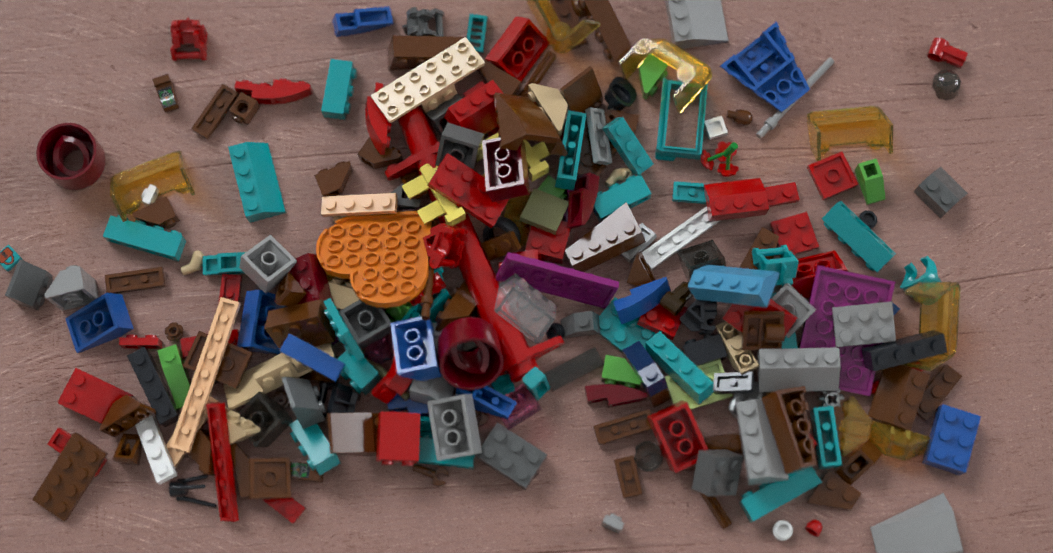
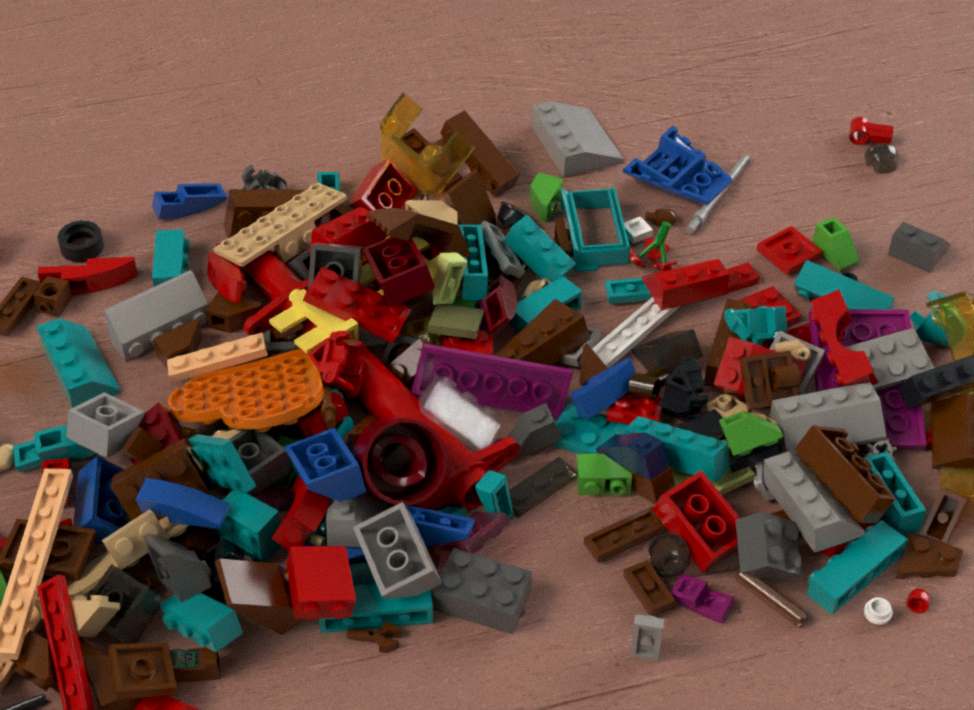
camera: 15 degrees left, 30 degrees down
(268, 38) = (76, 230): none -> black tyre
(320, 152) = (153, 313): none -> light grey slope
(545, 174) = (448, 277): none -> yellowish green slope
(614, 394) = (600, 500): dark red slope -> none
(651, 139) = (562, 237): none -> reddish brown plate
(663, 492) = (696, 596): none -> magenta slope
(690, 70) = (588, 172): clear yellow windscreen -> none
(732, 375) = (747, 431): none -> bright green slope
(733, 285) = (715, 333): dark azure slope -> none
(793, 304) = (798, 349): none -> tan arm
(829, 283) = (834, 317): none -> red arch
(848, 127) = (795, 205): clear yellow windscreen -> none
(855, 426) = (922, 474): clear yellow slope -> none

